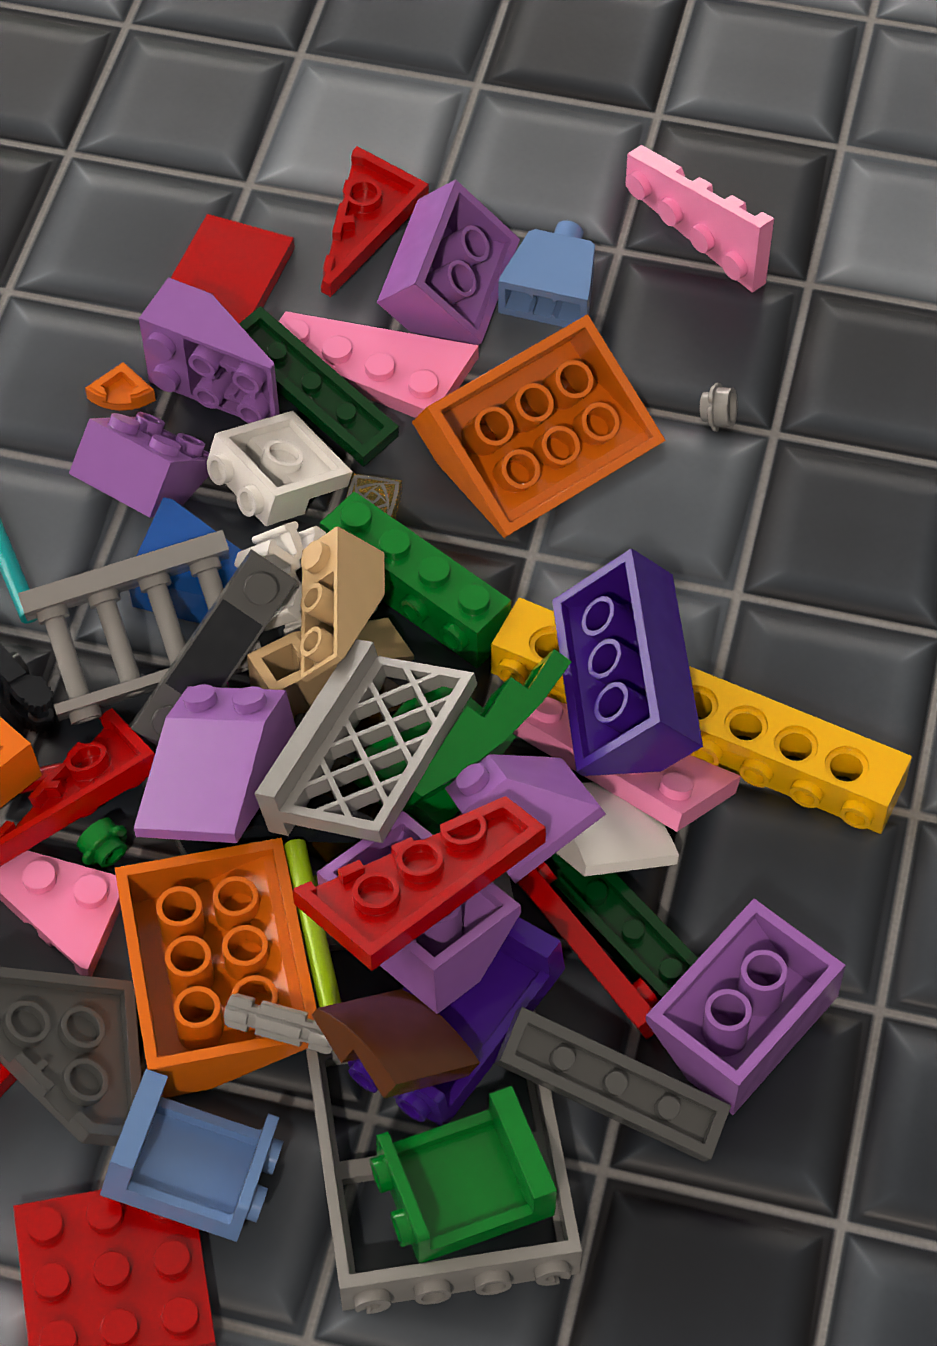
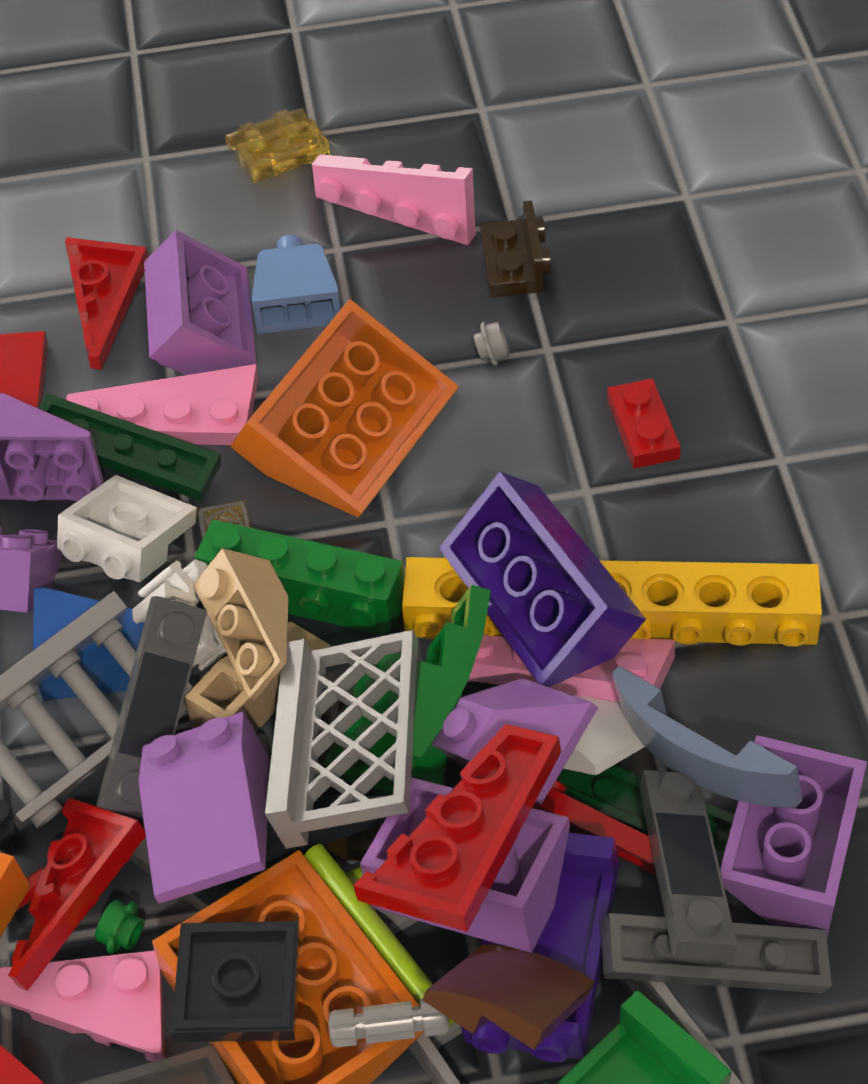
camera: 20 degrees left, 5 degrees down
(169, 933) = (236, 982): none -> black tile
(611, 115) = (277, 144): none -> clear yellow plate
(622, 993) = (687, 868): none -> dark grey plate
(716, 931) = (749, 777): none -> sand blue slope
(789, 321) = (514, 254): none -> dark brown bracket
(827, 546) = (643, 423): none -> red plate

